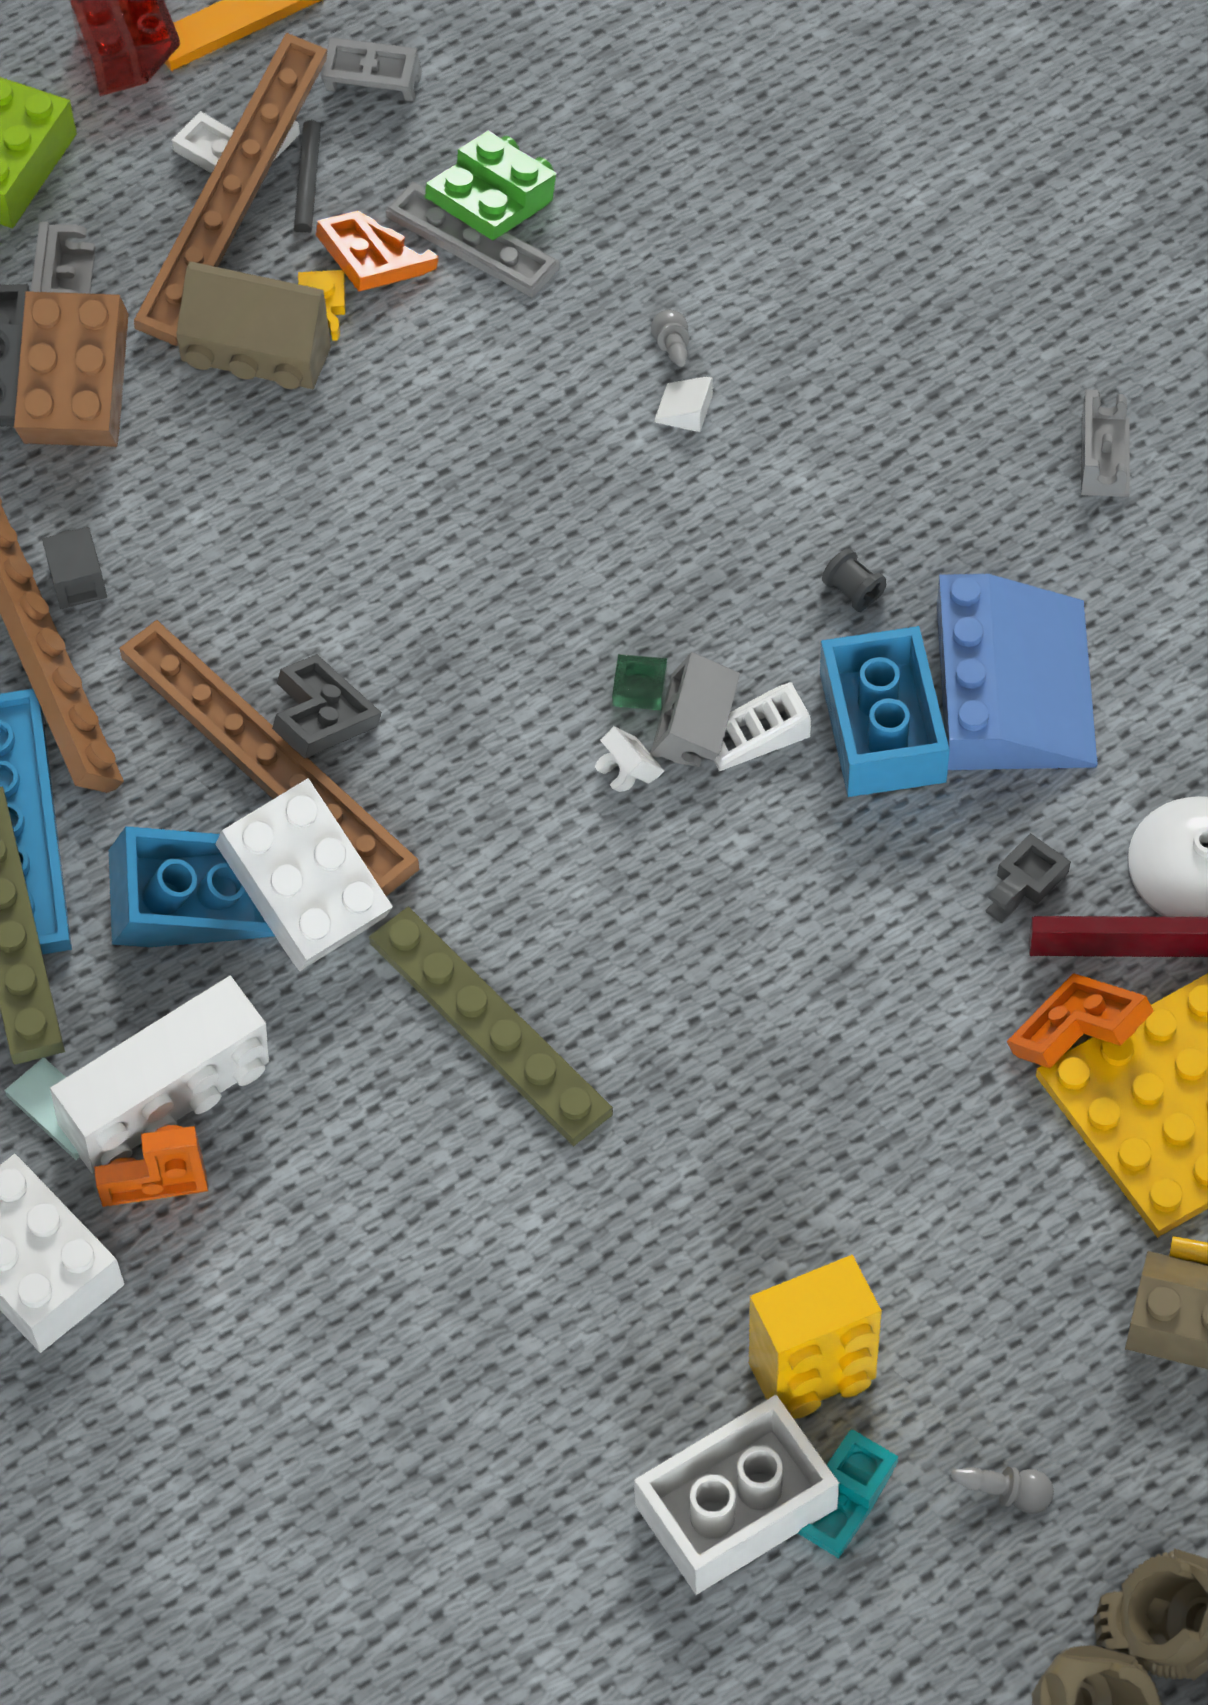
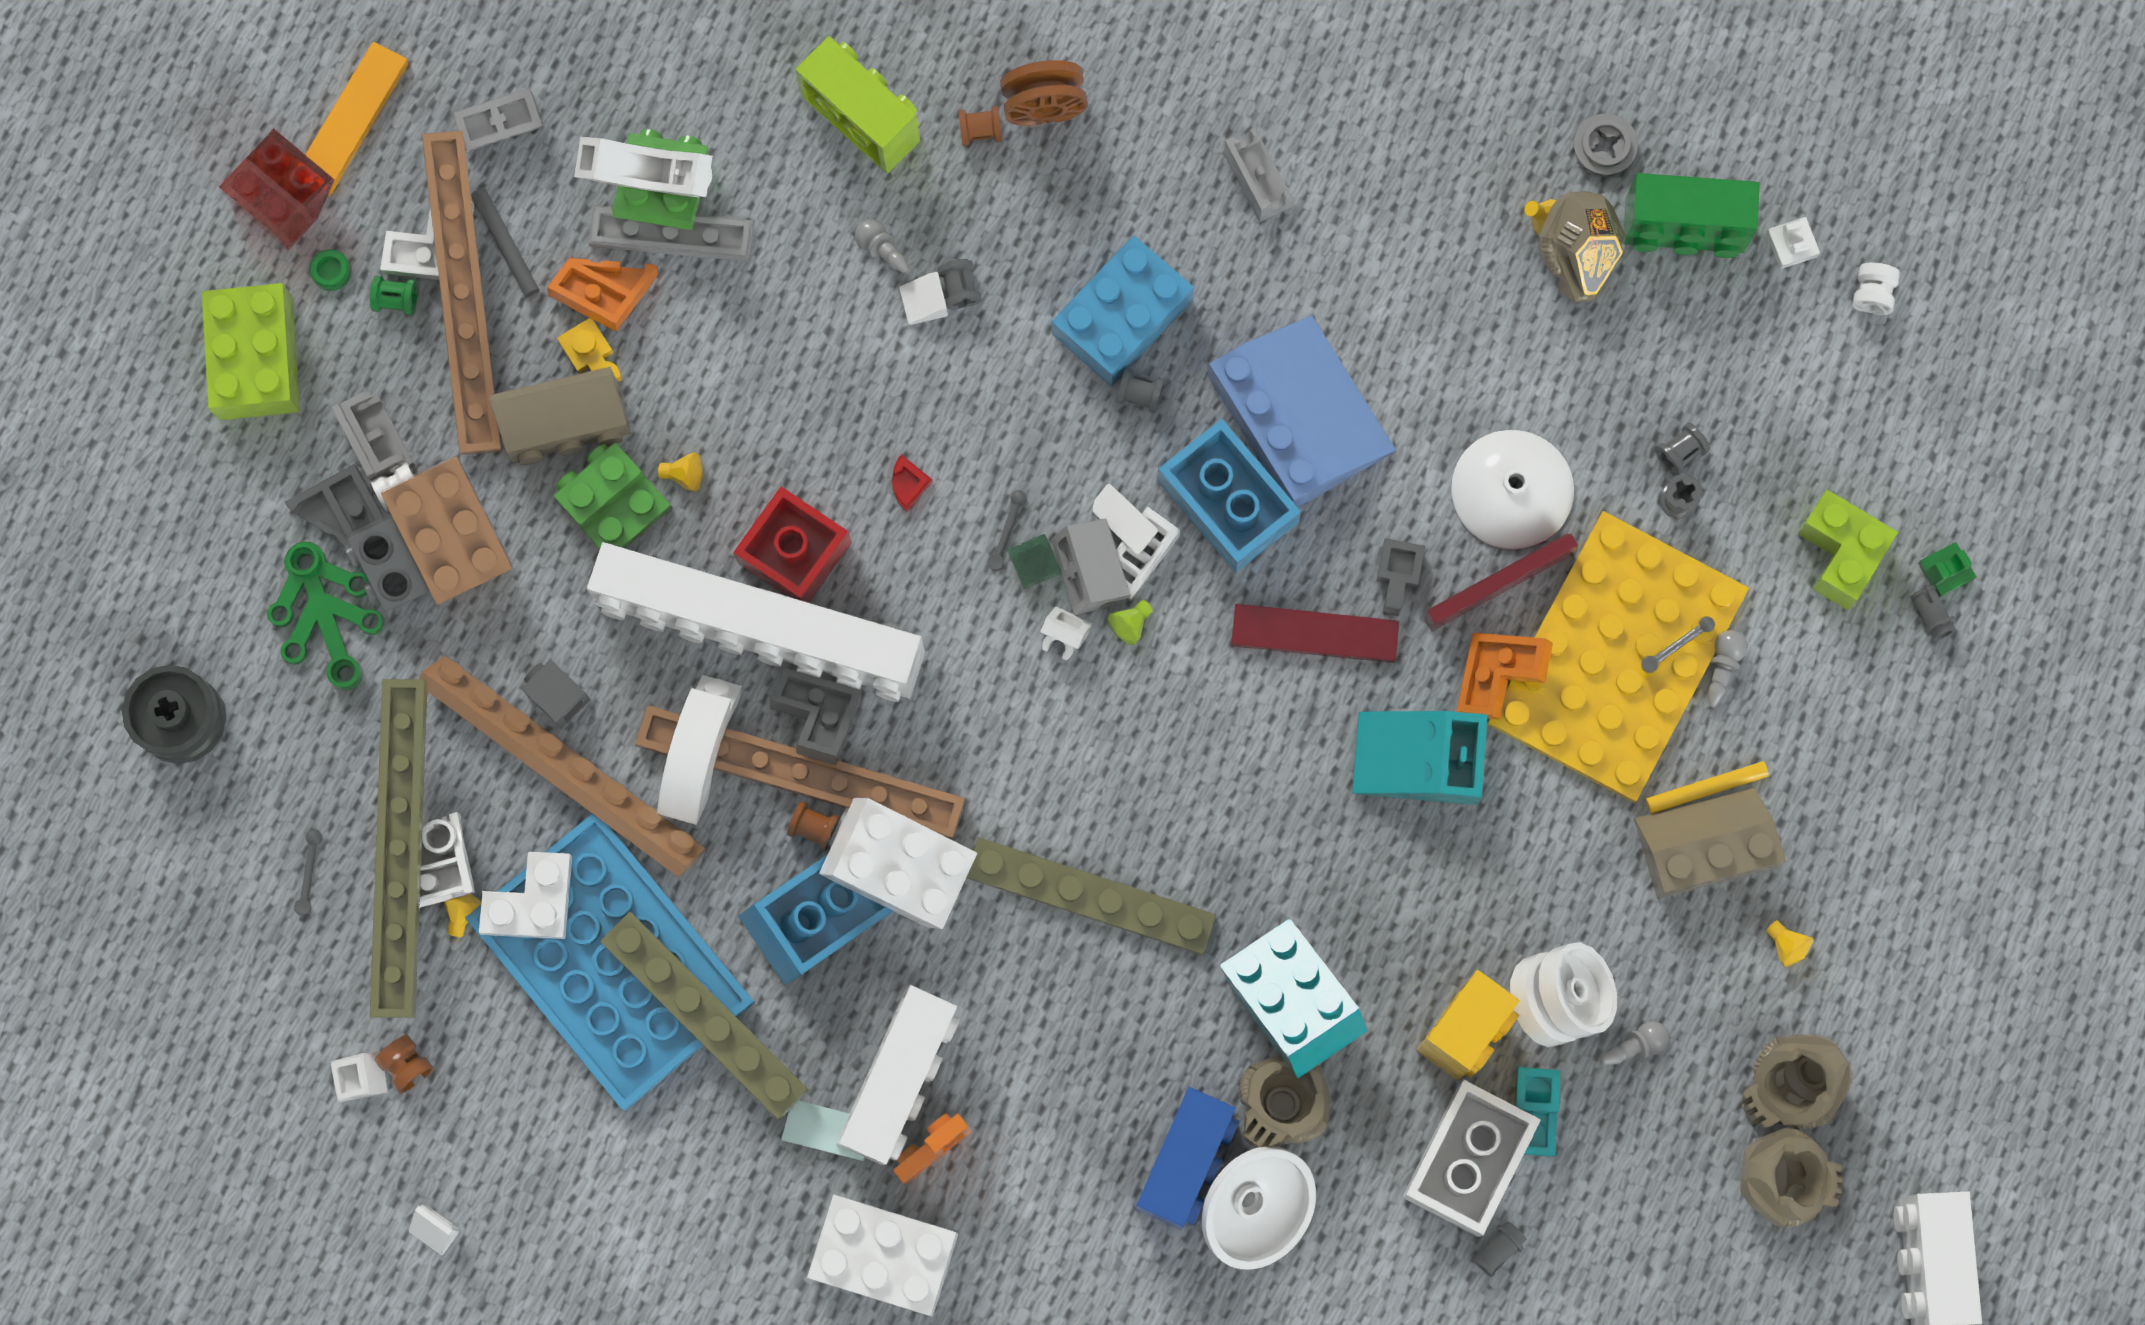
camera: 30 degrees left, 20 degrees up
(126, 126) = (330, 270): none -> green tile
(168, 672) = (695, 749): none -> white arch
(169, 168) = (381, 289): none -> green bush
(236, 800) = (812, 825): none -> dark orange bush
(251, 430) = (611, 498): none -> bright green plate
(317, 592) = (756, 621): none -> white brick
(343, 441) = (685, 471): none -> yellow rock
(399, 546) = (792, 546): none -> red brick
(414, 1320) = (1187, 1159): none -> blue brick
(469, 1446) = (1258, 1207): none -> white dish
(472, 147) = (643, 167): none -> white arch
(559, 556) = (908, 482): none -> red tile
(559, 1322) = (1281, 1106): none -> dark tan helmet
(602, 668) = (996, 561): none -> dark grey hinge
(639, 1218) = (1294, 998): none -> brick
(702, 785) = (1129, 623): none -> lime rock
(712, 1617) = (1499, 1248): none -> dark grey pin
(728, 403) = (959, 284): none -> dark grey bush
(729, 199) = (859, 103): none -> lime brick
(759, 685) = (1124, 519): none -> white sticker
(841, 280) = (980, 126): none -> dark orange bush
(882, 496) = (1122, 310): none -> dark azure brick
(898, 893) = (1315, 633): none -> dark red tile
(922, 269) = (1043, 93): none -> dark orange wheel
(942, 1062) = (1420, 755): none -> teal slope
(947, 1369) = (1564, 994): none -> white wheel

